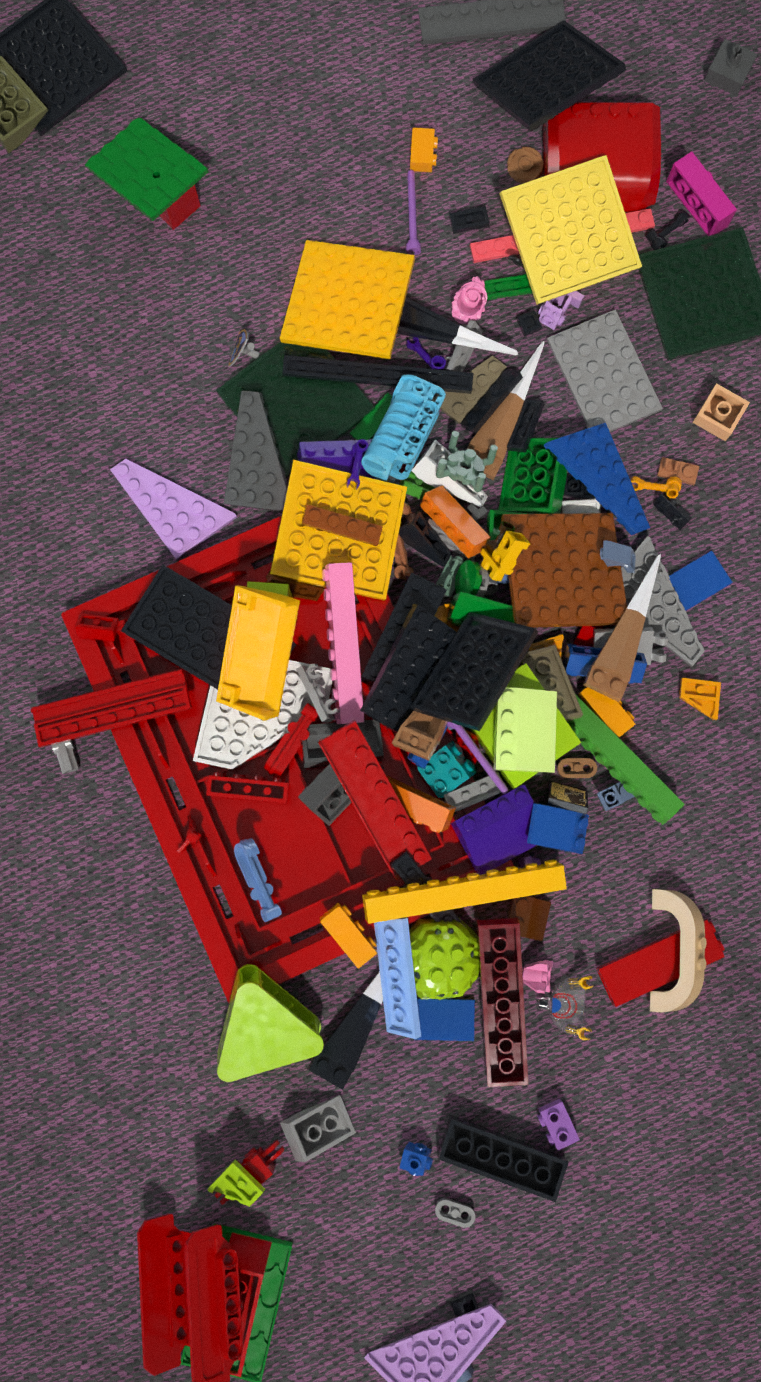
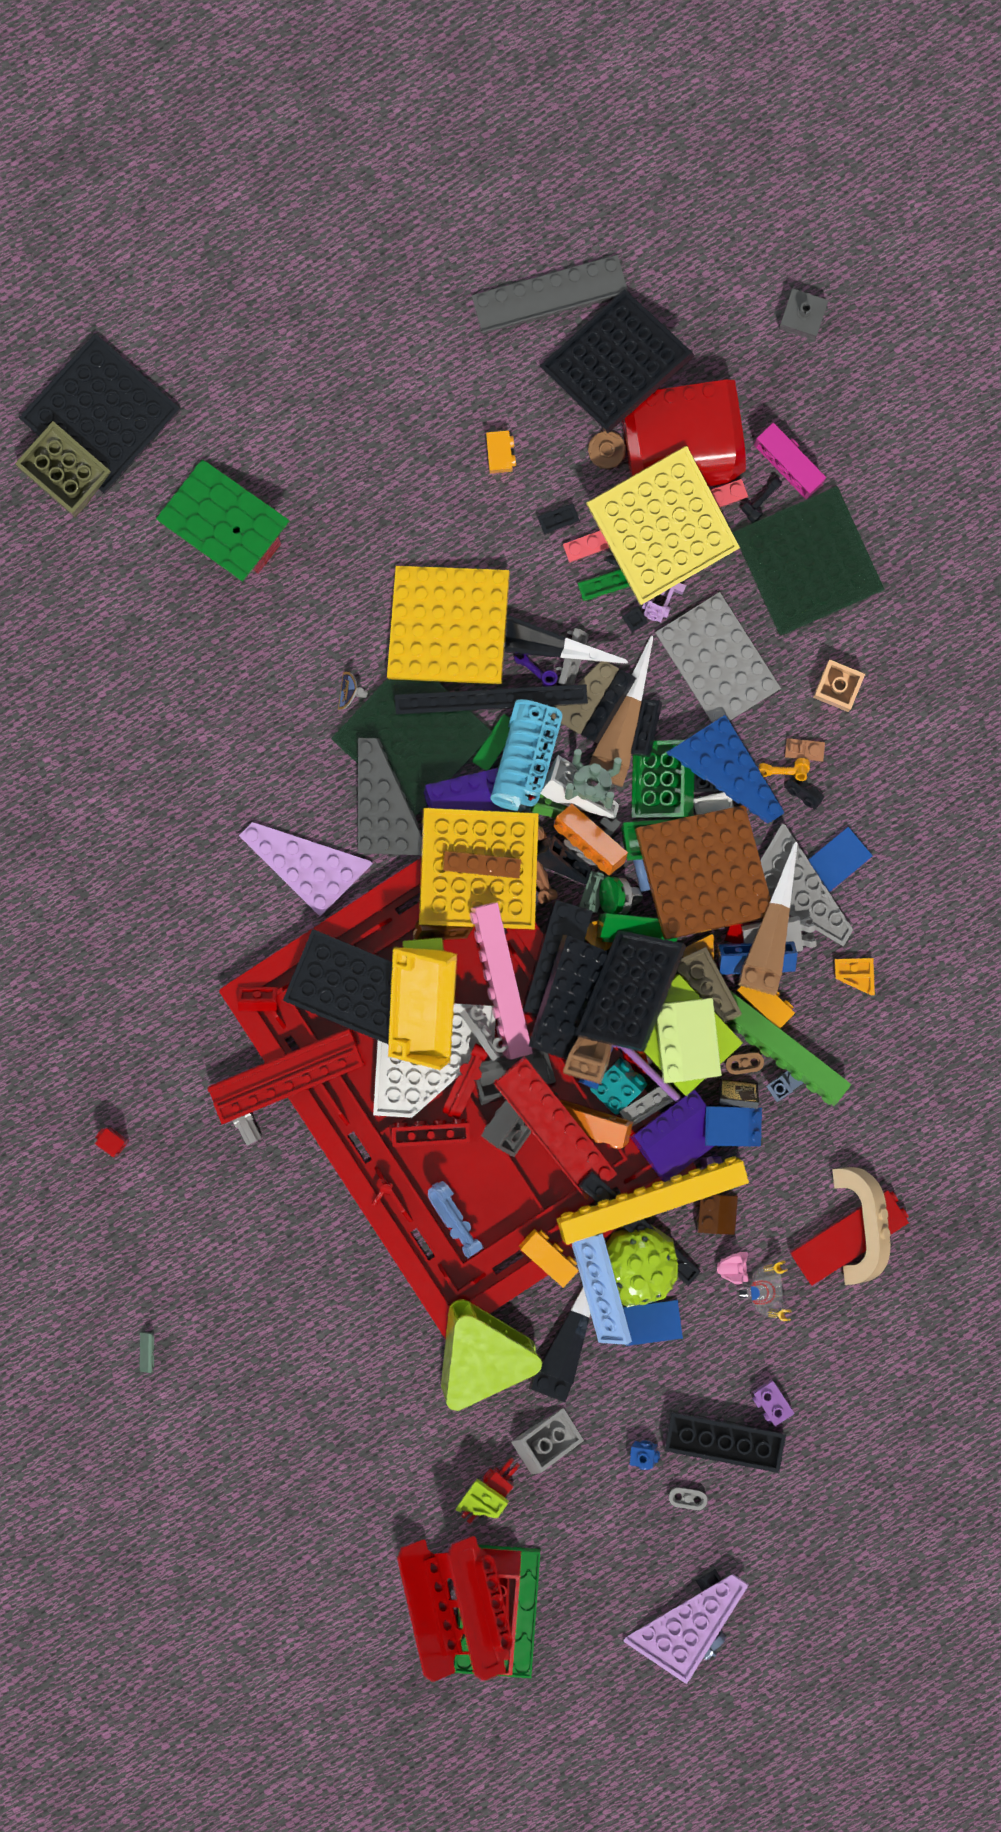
camera: 10 degrees left, 5 degrees up
(358, 453) = (486, 798): dark purple brick -> none
(413, 244) = (505, 553): medium lavender piece -> none
(469, 301) = (572, 608): bright pink hair -> none
(502, 553) = (642, 866): yellow hips -> none
(502, 1002) = (703, 1297): dark red brick -> none
(618, 555) = (755, 851): sand blue slope -> none

